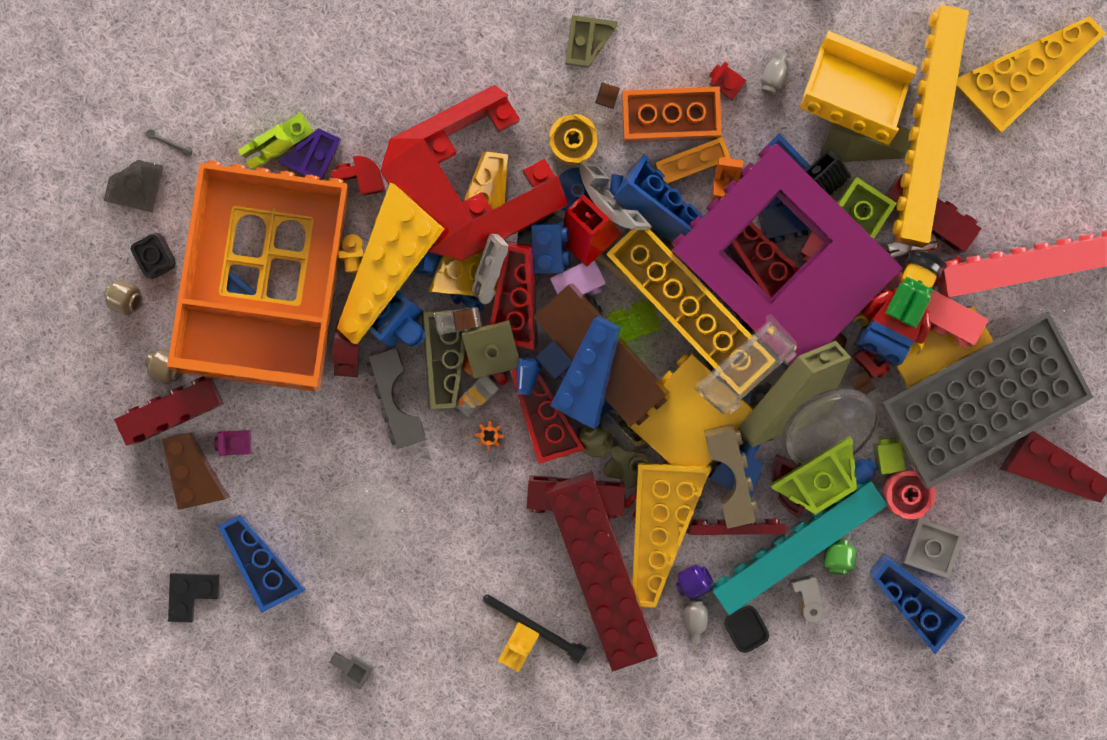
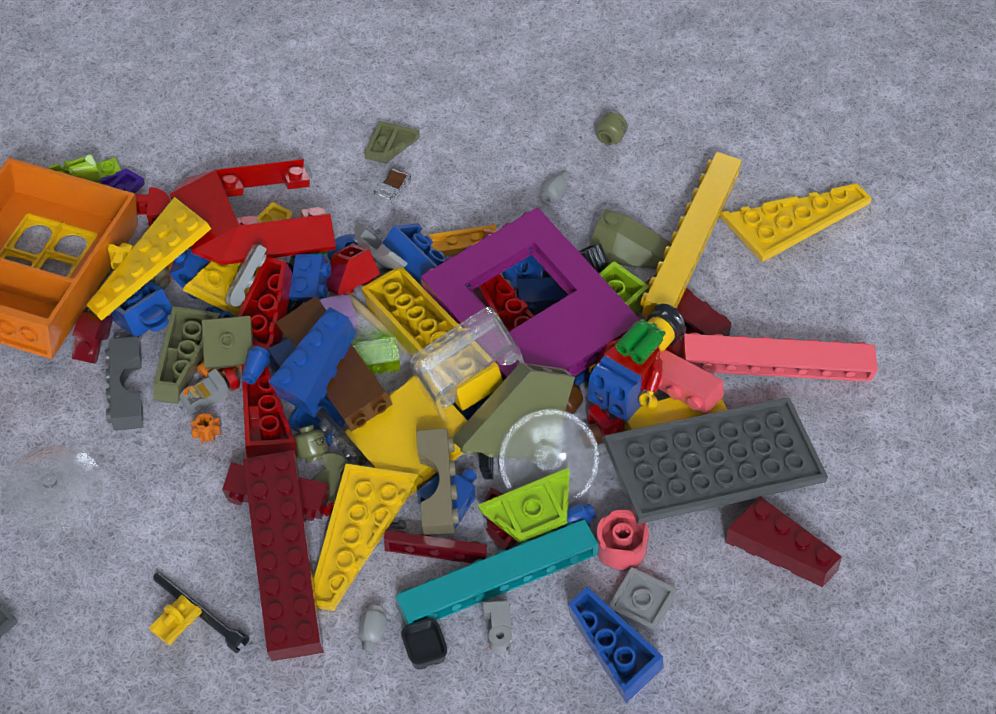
camera: 10 degrees right, 35 degrees down
(457, 320) = (194, 311): leg -> none
(569, 127) = (355, 204): yellow brick -> none
(671, 114) = (450, 199): orange brick -> none
(694, 581) = (379, 590): dark purple head -> none
(727, 79) = (508, 187): red bracket -> none
(840, 557) = (539, 592): bright green head -> none
(857, 87) = (629, 198): yellow panel -> none
(889, 456) = (607, 501): lime brick -> none

